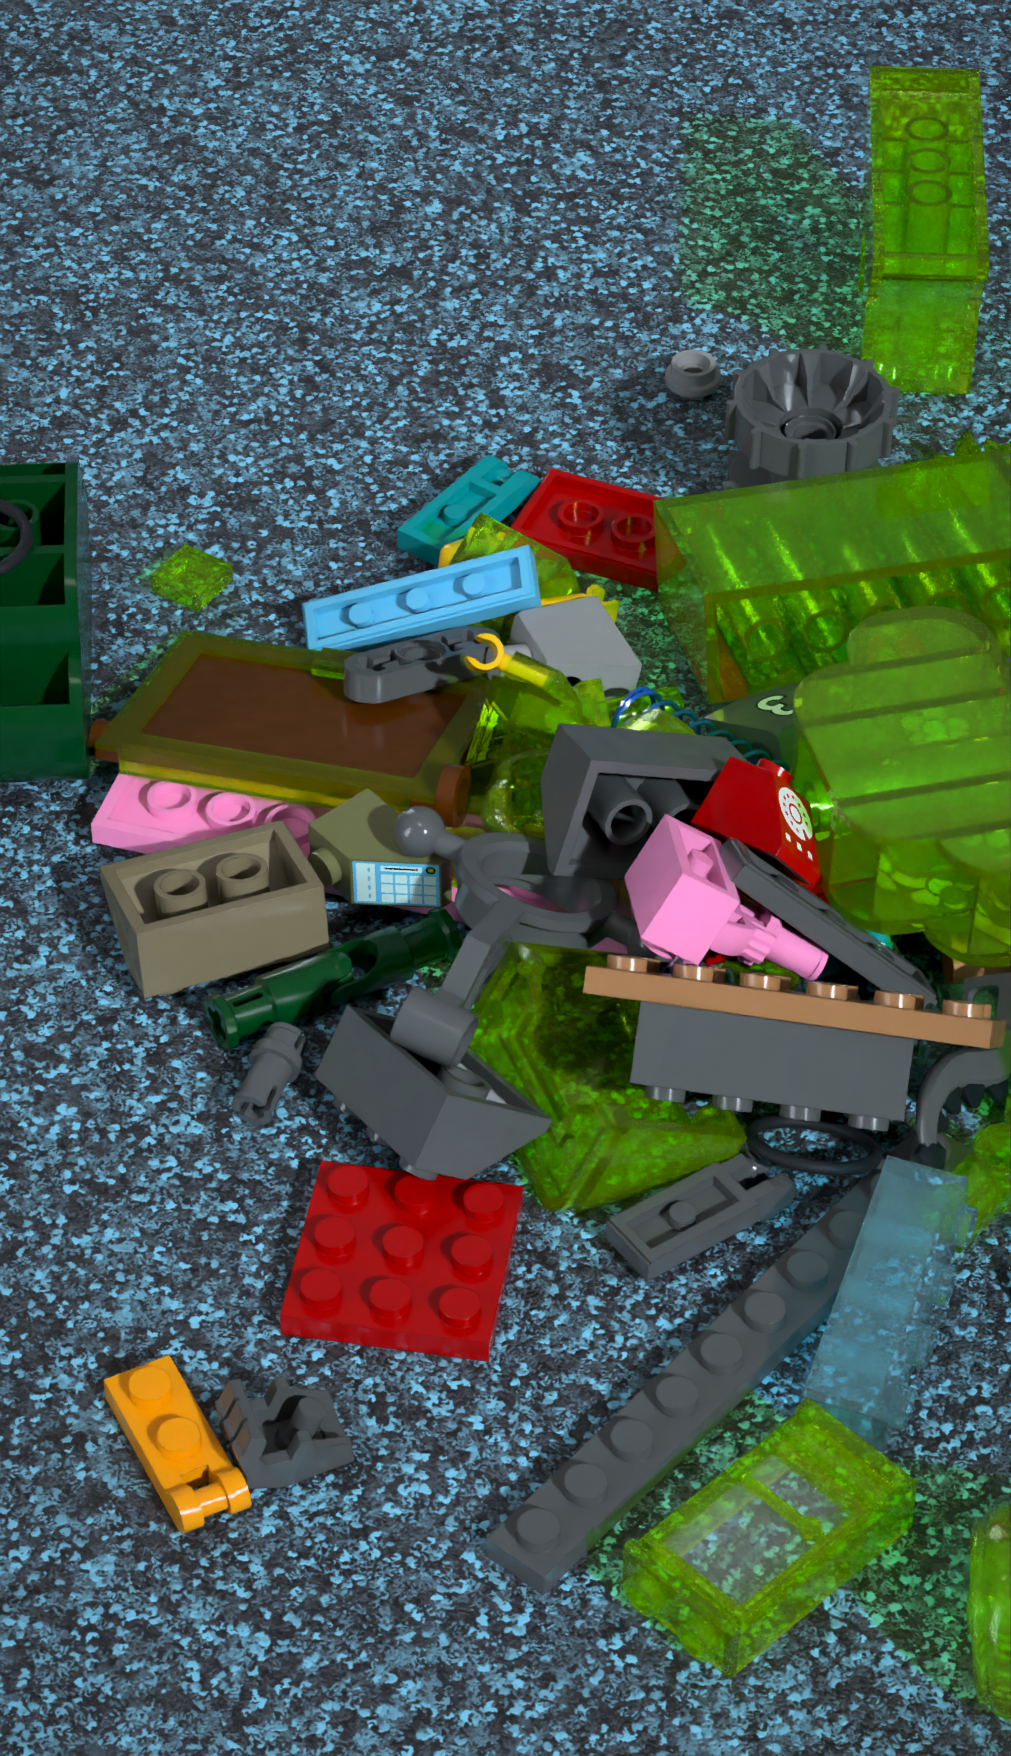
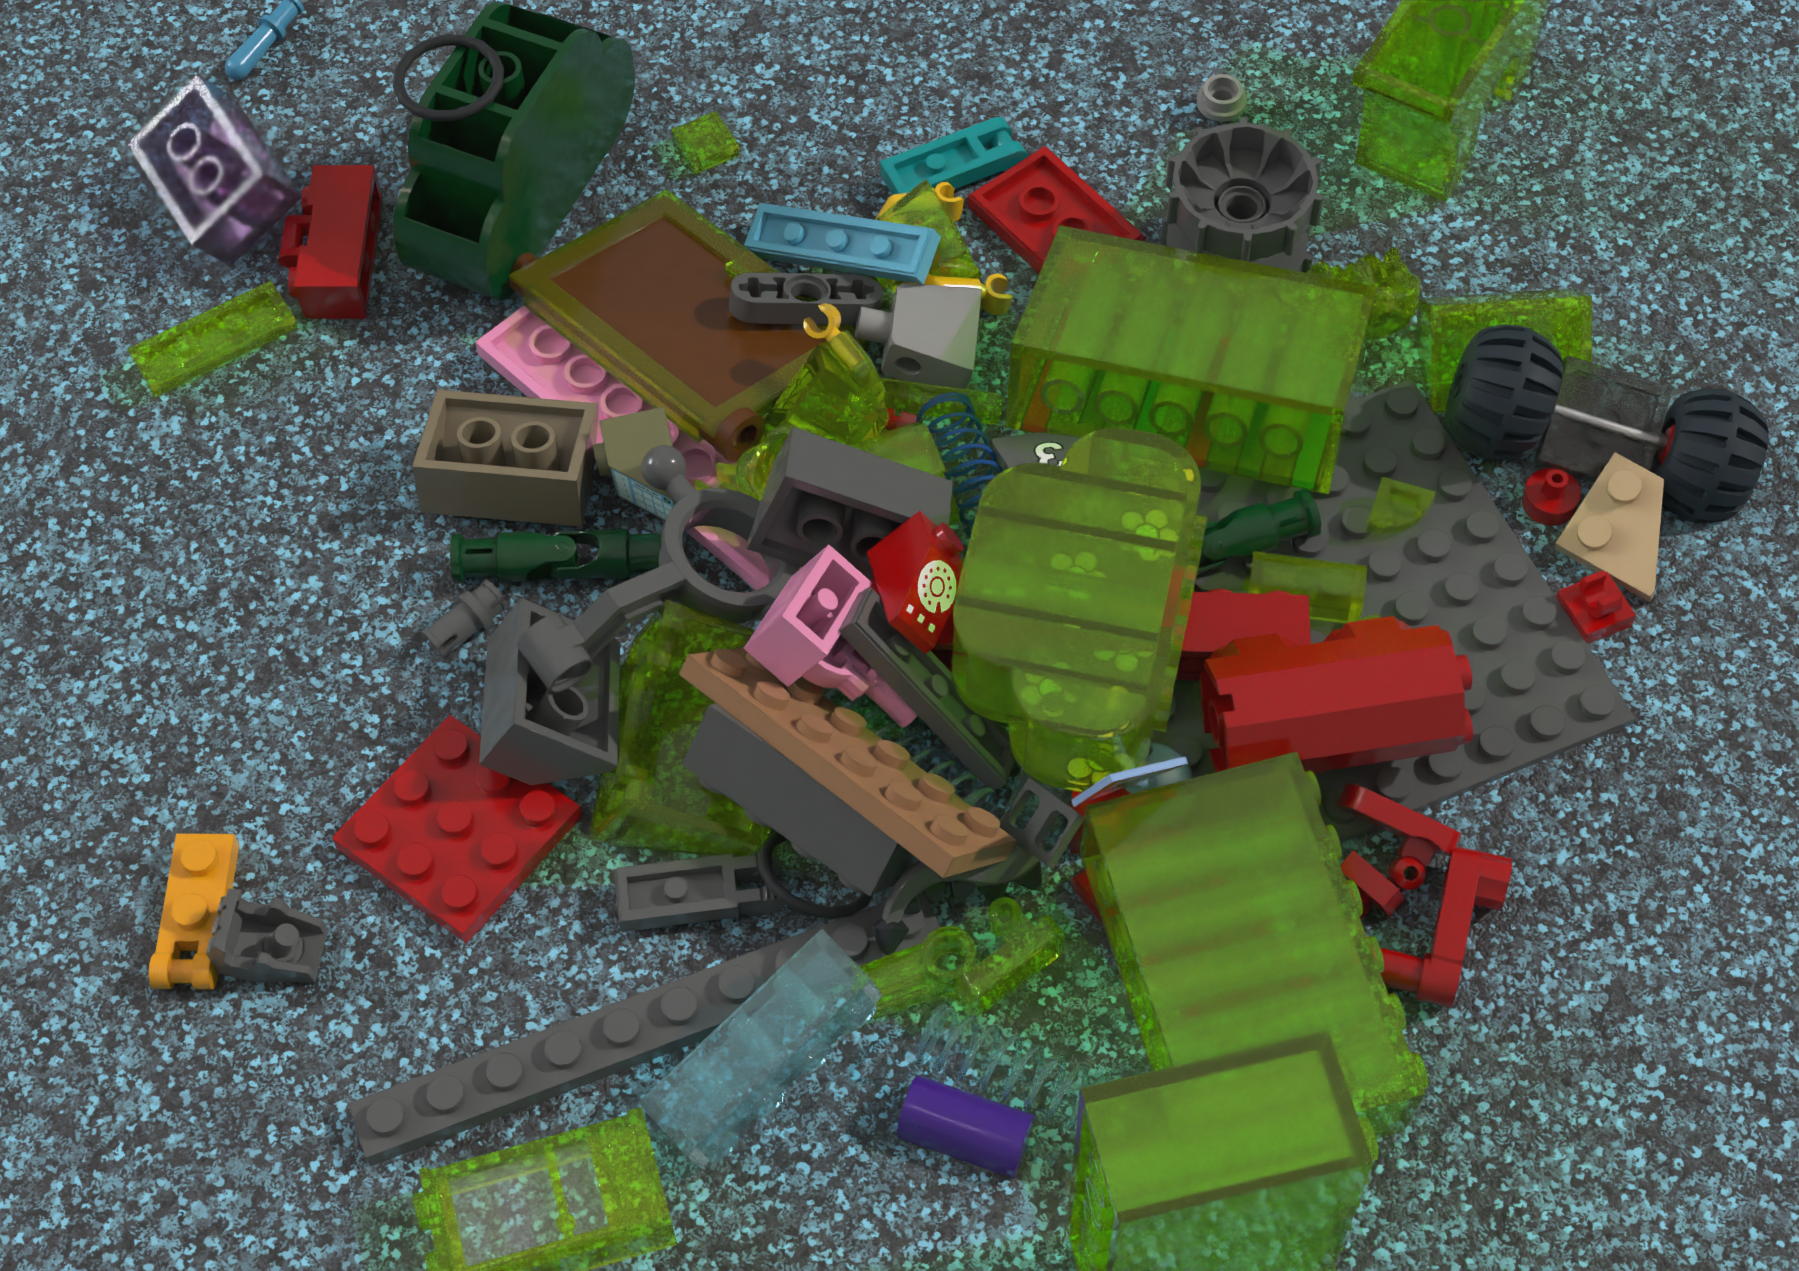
camera: 30 degrees right, 15 degrees up
(593, 701) = (904, 396): clear neon green tile -> none

